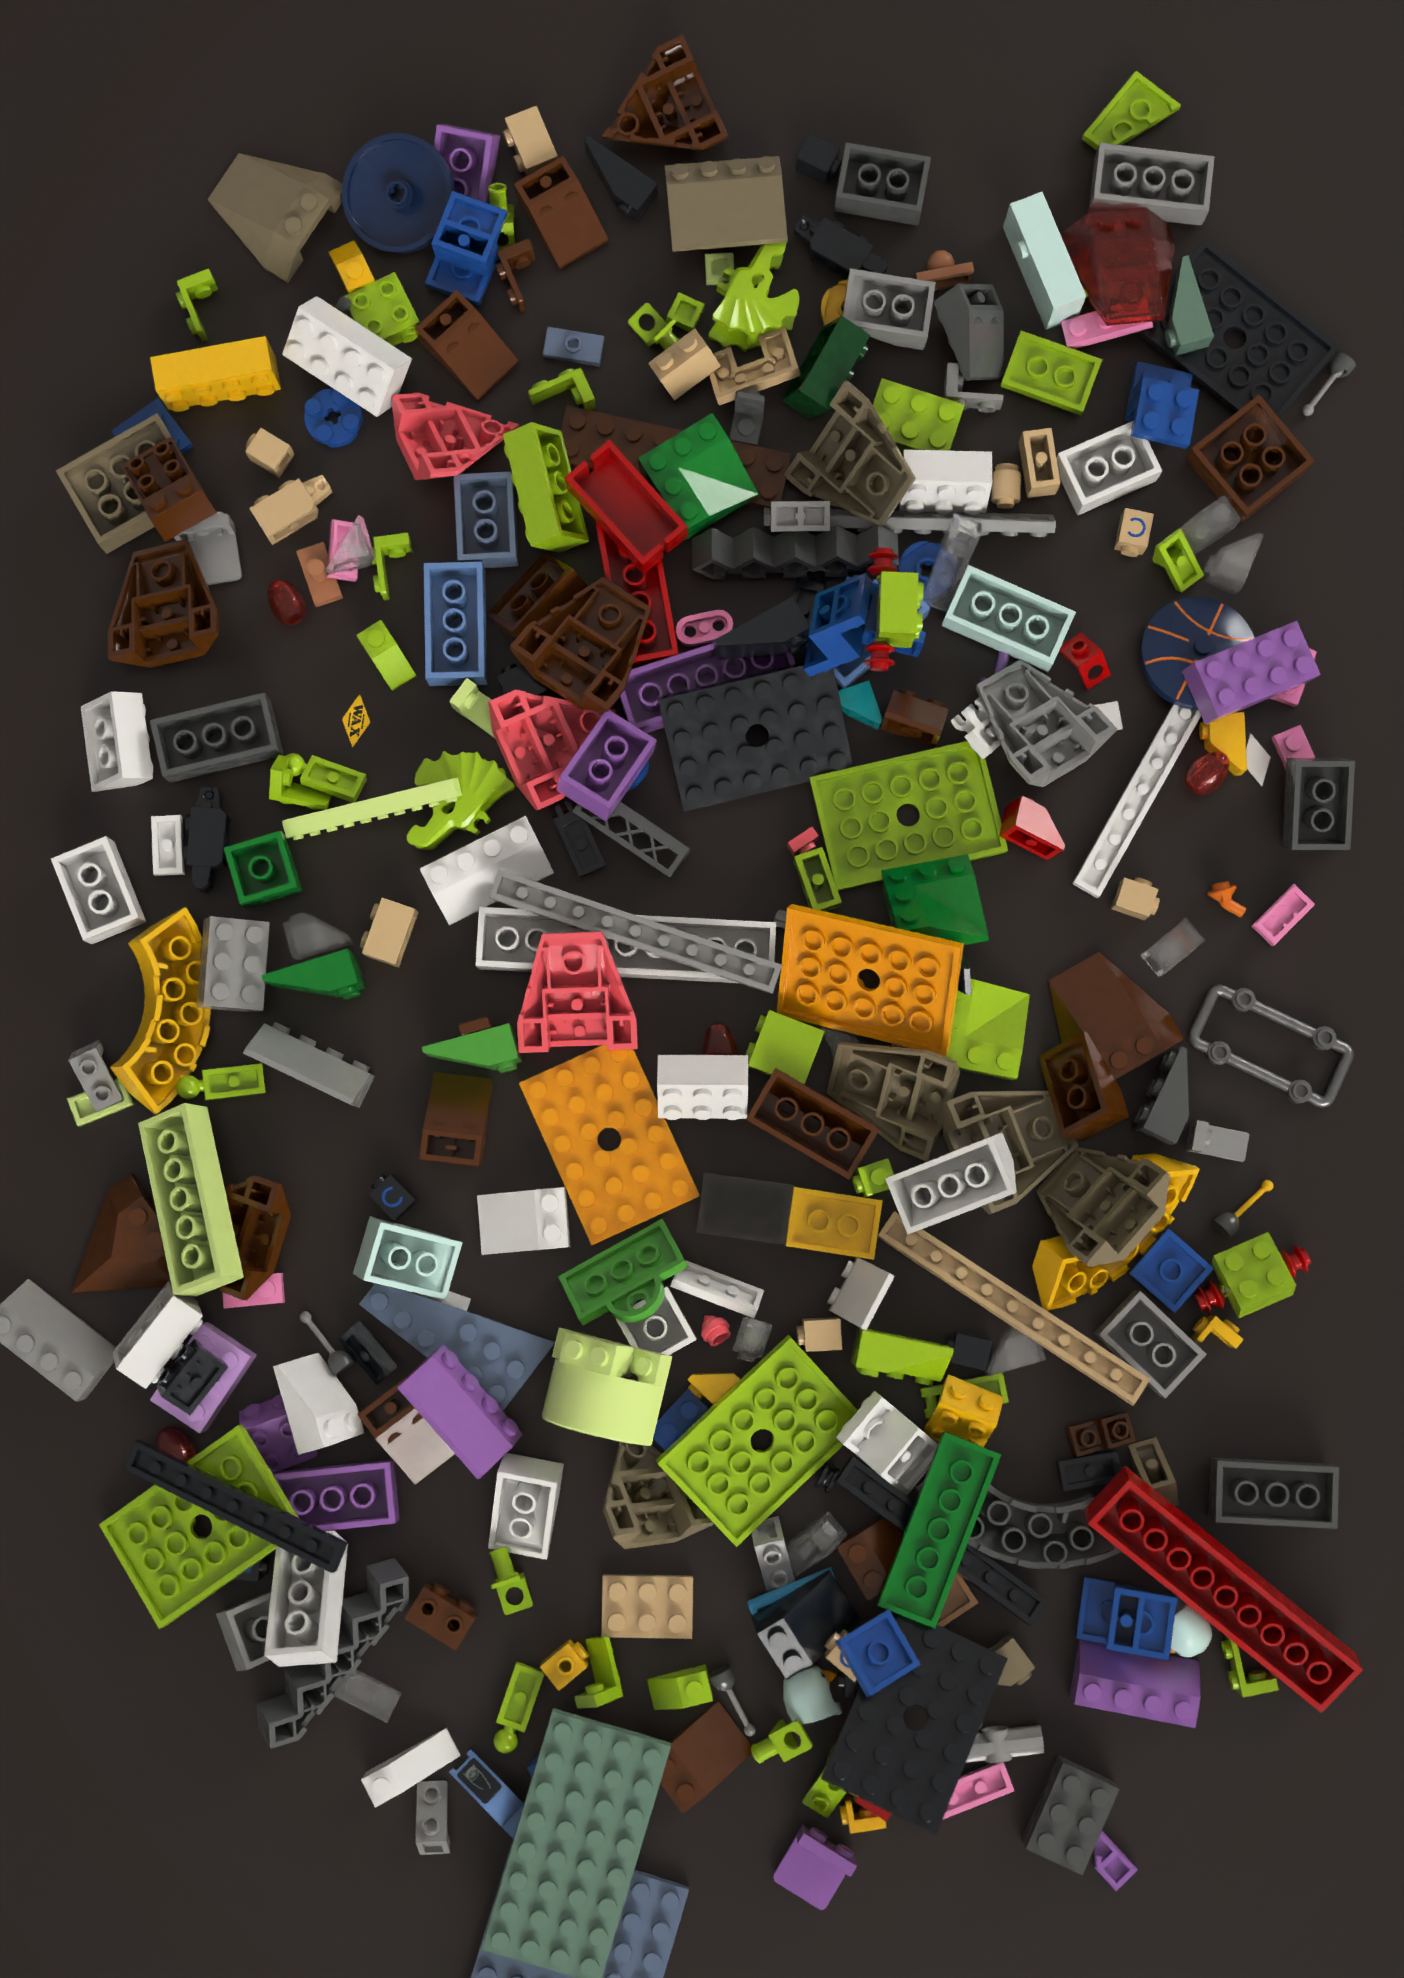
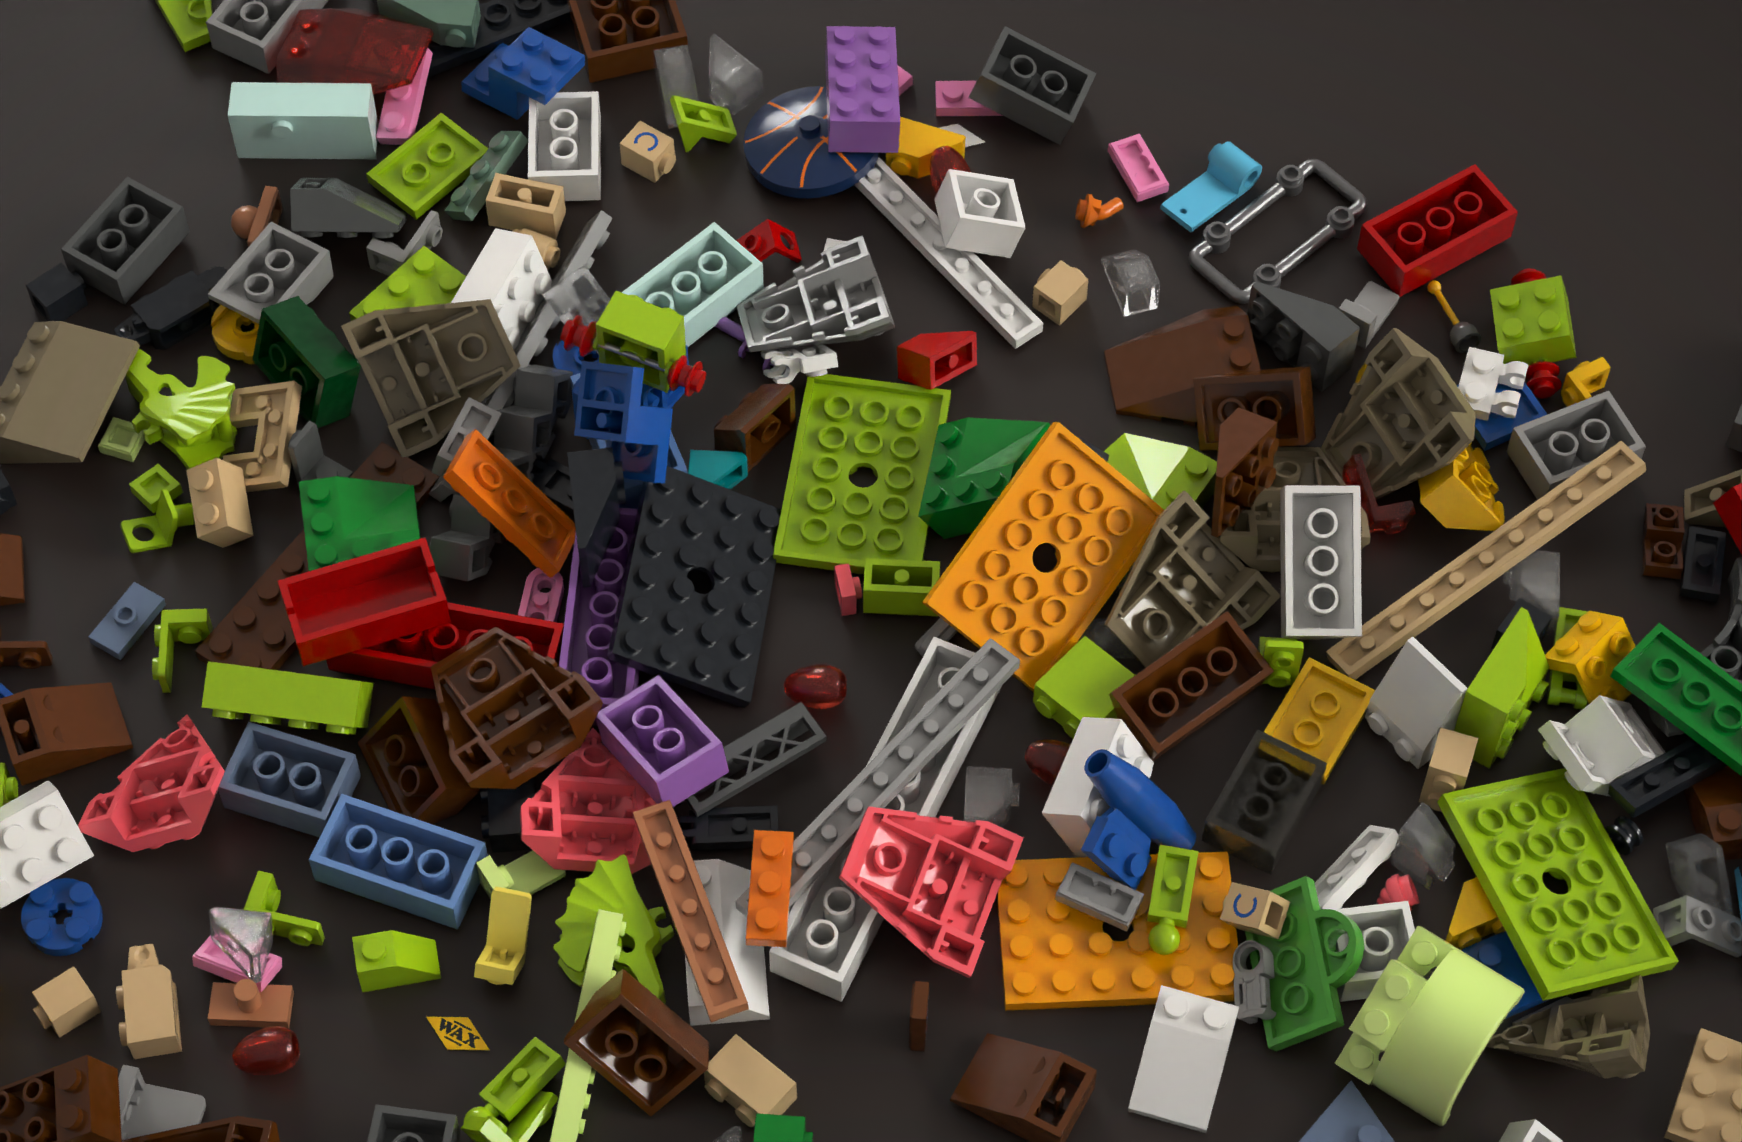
camera: 70 degrees left, 25 degrees down
(379, 847) = (638, 1043): none -> reddish brown slope
(425, 724) = (506, 937): none -> light yellow bracket
(483, 840) = (690, 911): none -> nougat plate
(487, 1049) = (954, 1006): bright green slope -> none
(514, 889) = (769, 888): none -> orange plate
(597, 1249) = (1253, 985): none -> light grey piece
(618, 1118) = (1099, 896): none -> light grey plate
(638, 1169) = (1171, 897): none -> lime plate
(648, 1232) = (1254, 910): none -> tan brick
(667, 1010) = (990, 794): none -> clear slope
(684, 1119) = (1136, 817): none -> blue plate
(713, 853) = (817, 686): none -> clear red animal
(758, 567) = (511, 503): none -> orange plate
(1014, 1095) = (1243, 465): none -> reddish brown slope
(1029, 1221) = (1386, 518): none -> clear red bracket
(1061, 420) = (499, 157): none -> sand green plate
(1175, 810) = (979, 213): none -> white brick
(1179, 1250) = (1480, 379): none -> white plate
(1289, 982) = (1226, 179): none -> medium azure door
(1315, 1171) = (1437, 230): none -> red brick

